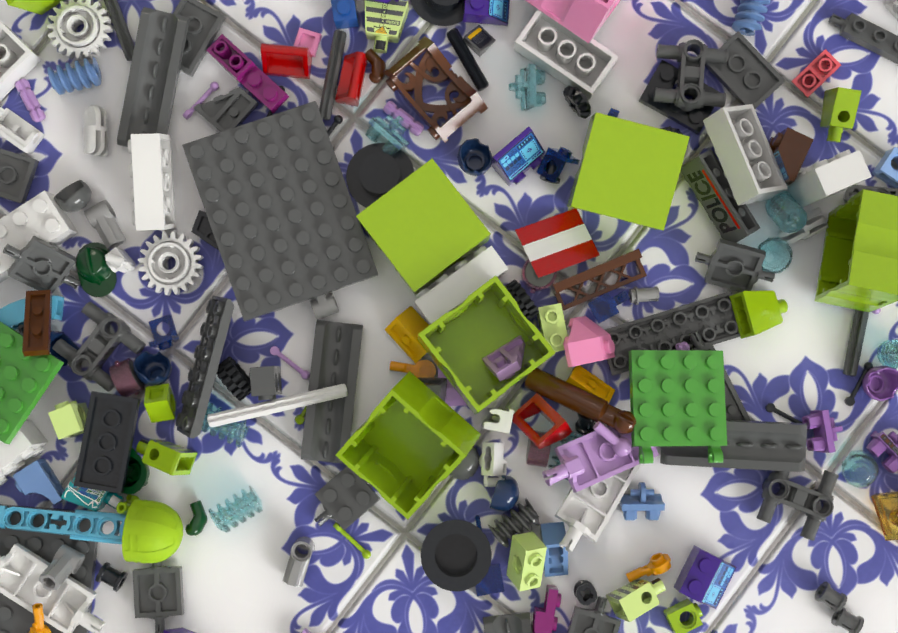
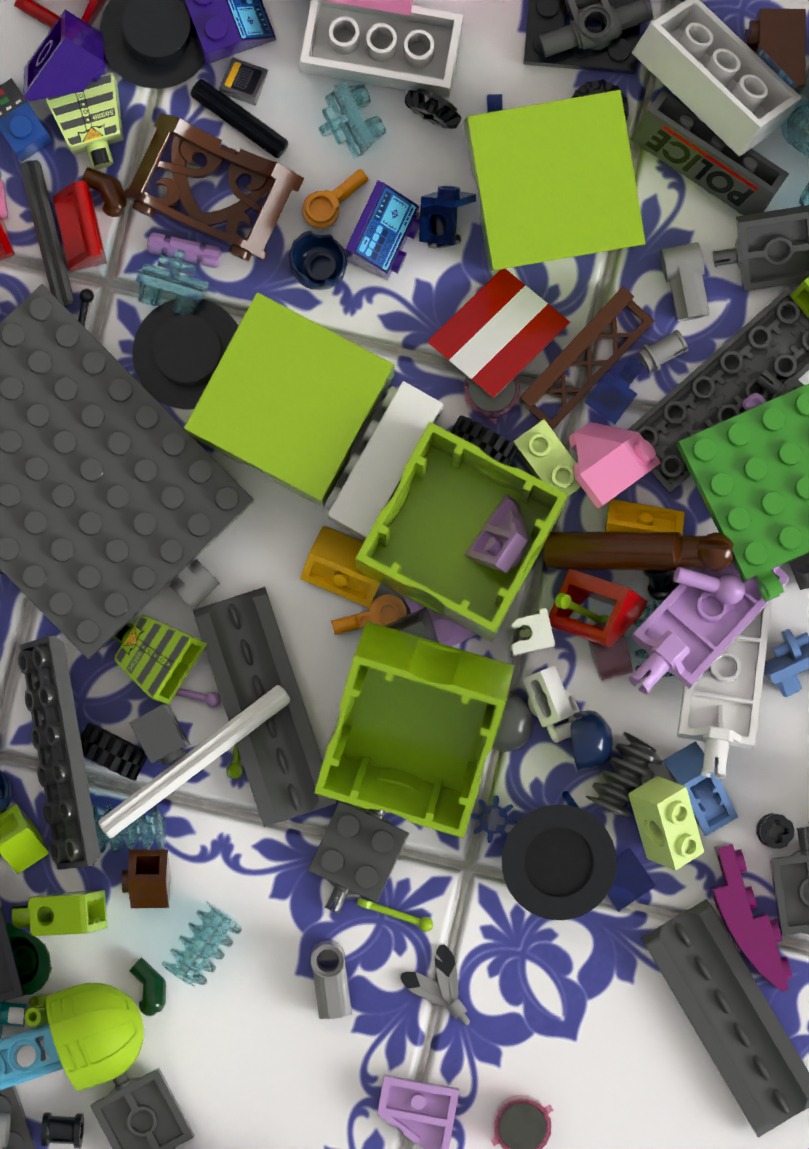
camera: 20 degrees left, 0 degrees up
(222, 458) = (147, 879): none -> reddish brown brick
(284, 337) = (157, 656): none -> lime torso
(360, 596) = (441, 993): none -> light grey piece
(432, 519) = (499, 828): none -> clear blue gear
(490, 129) = (322, 207): none -> light orange plate
(525, 410) = (564, 601): none -> lime hinge
(676, 255) = (684, 271): none -> light grey piece

